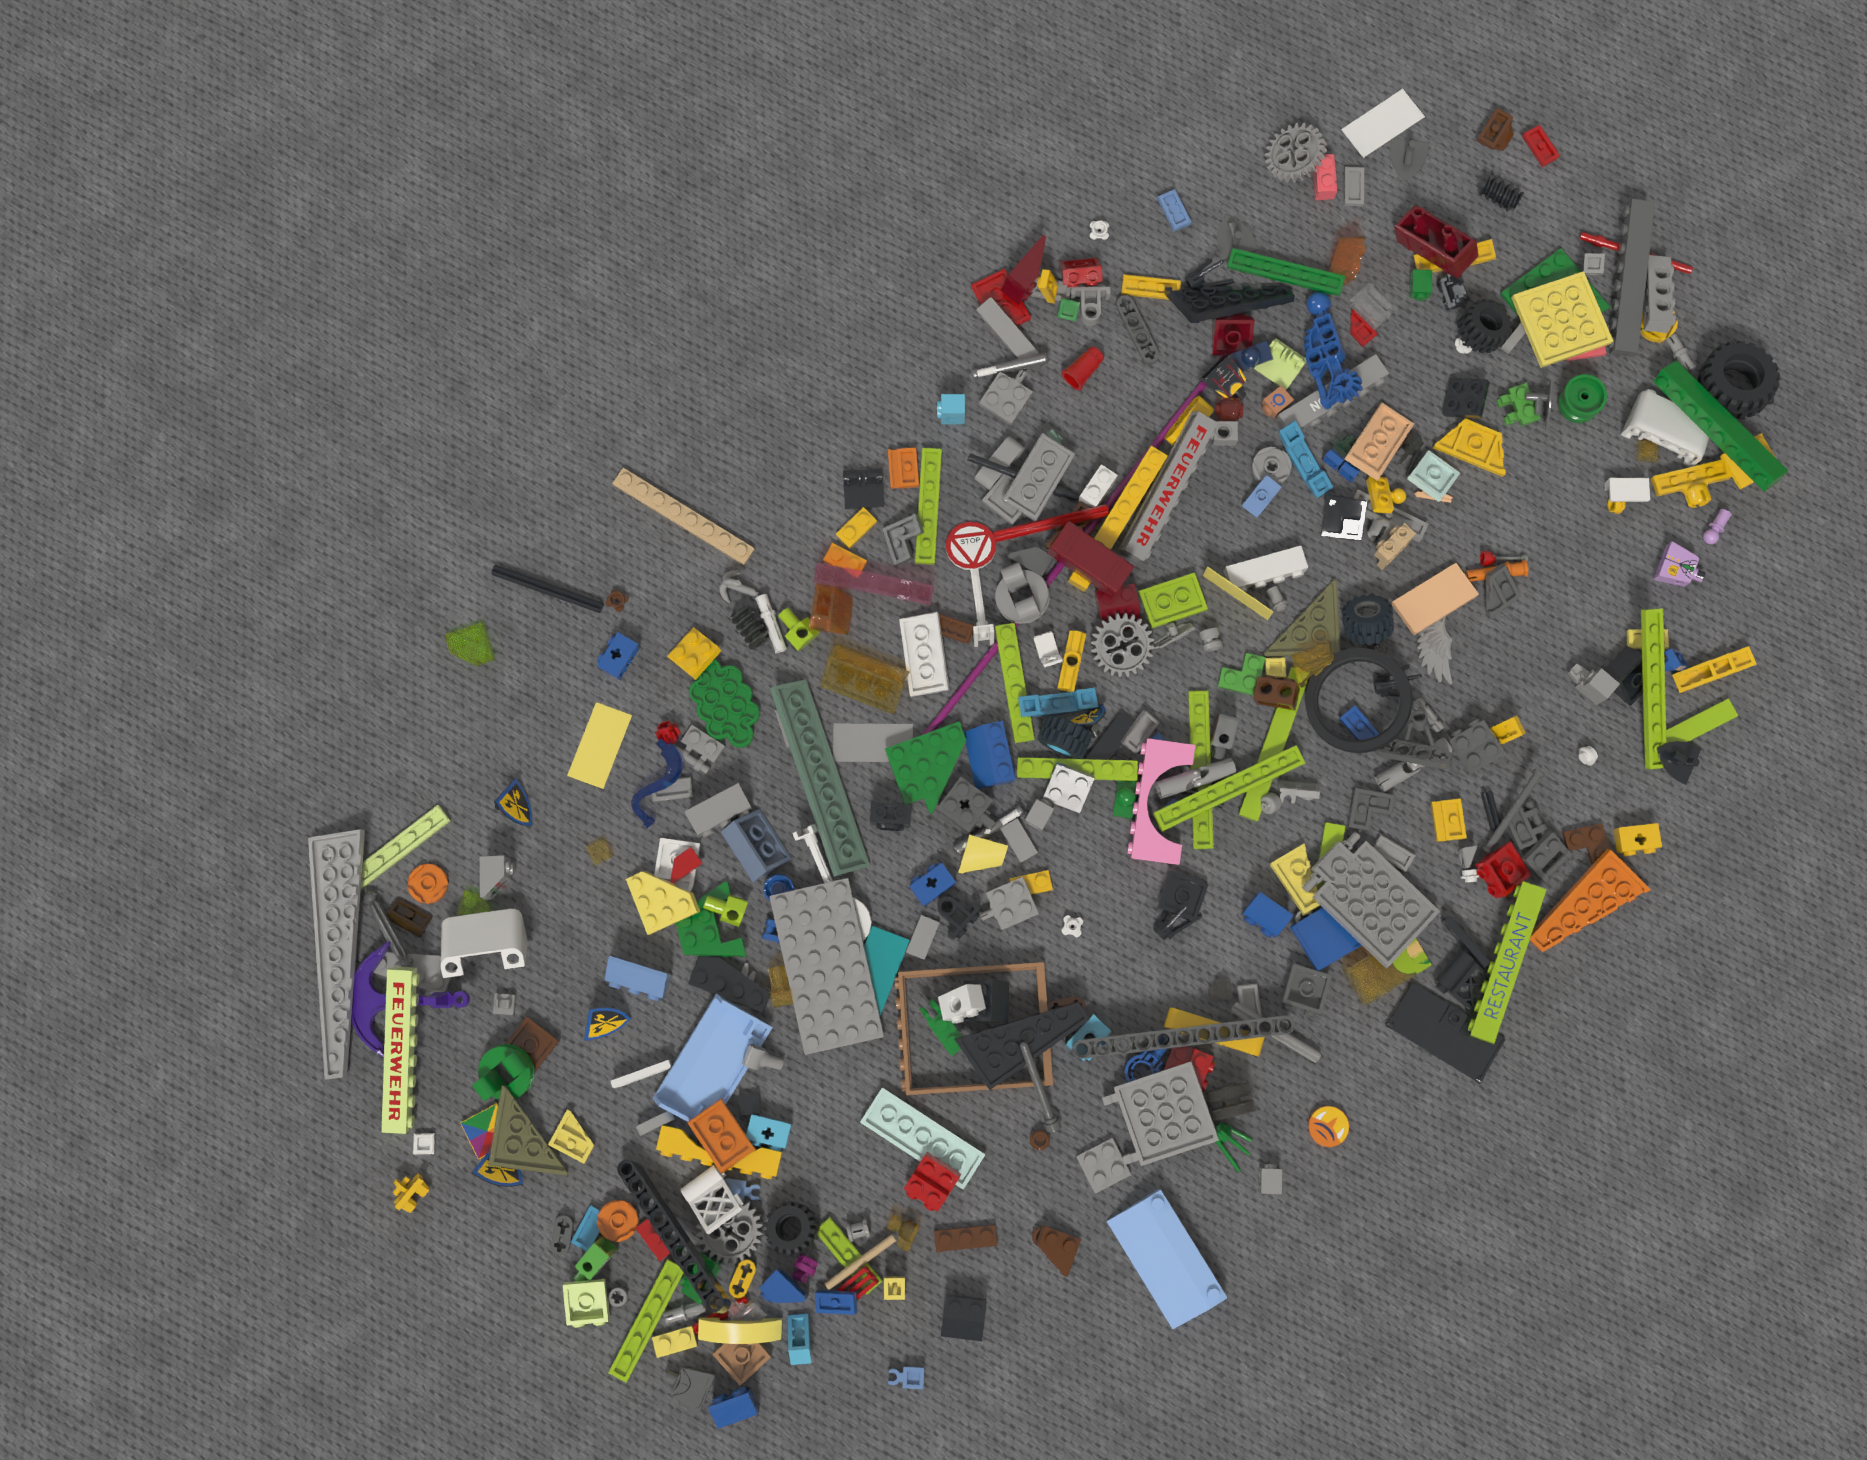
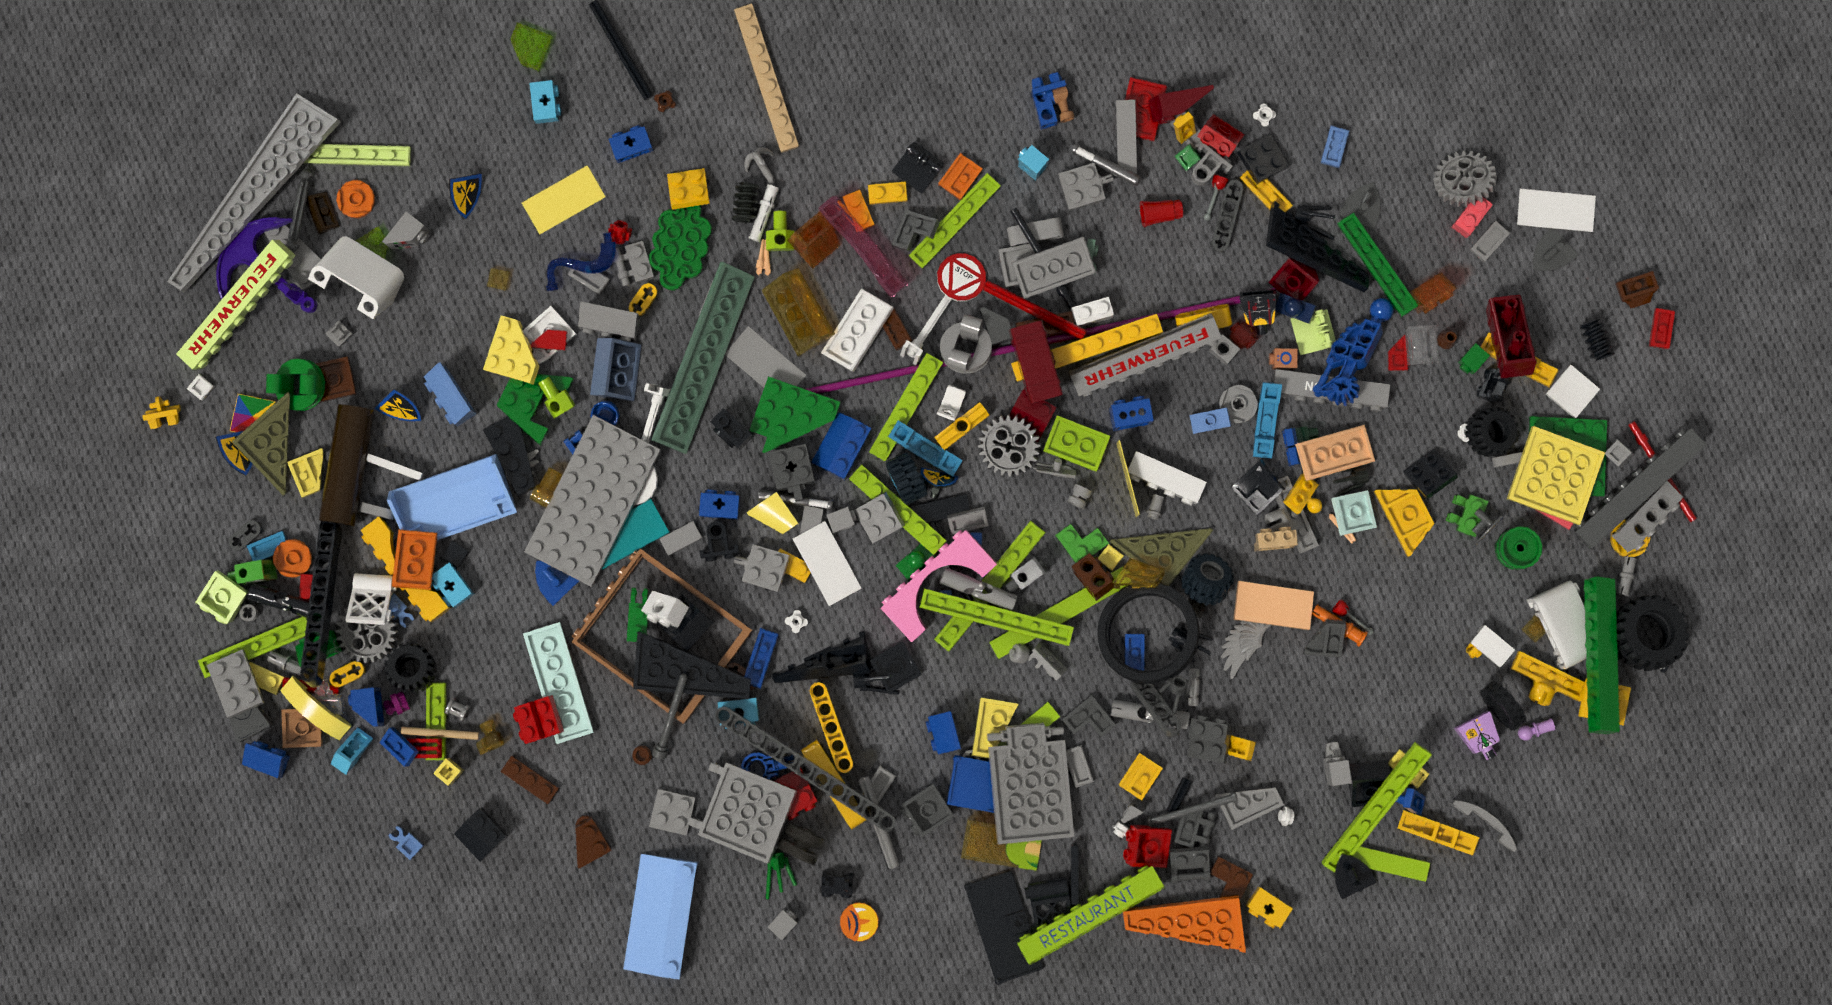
camera: 40 degrees right, 5 degrees up
(524, 689) = (539, 92): none -> medium azure brick
(599, 1105) = (346, 464): none -> dark brown piece
(624, 1268) = (270, 596): none -> black piece
(657, 1365) = (235, 684): none -> light grey plate
(726, 769) = (639, 296): none -> yellow beam
(758, 1057) = (488, 525): light grey pin -> none
(802, 661) = (763, 261): none -> light nougat piece
(848, 1059) = (553, 582): none -> blue shield
(919, 352) = (1049, 95): none -> blue hips
(1057, 859) = (827, 563): none -> white piece
(1068, 978) = (761, 657): none -> blue tile
(1109, 309) = (1218, 183): none -> hinge
(1127, 263) = (1263, 159): none -> black plate
(1136, 926) = (844, 660): none -> black wedge
(1183, 988) = (838, 734): none -> yellow beam
(1198, 527) = (1131, 422): none -> blue piece
(1286, 1111) = (837, 885): none -> black piece
(1387, 285) = (1443, 342): none -> reddish brown cone
(1515, 248) = (1572, 391): none -> white tile
(1556, 768) = (1250, 805): none -> light grey wing
(1679, 527) = (1503, 705): none -> black tyre
(1766, 629) = (1504, 836): none -> light grey slope

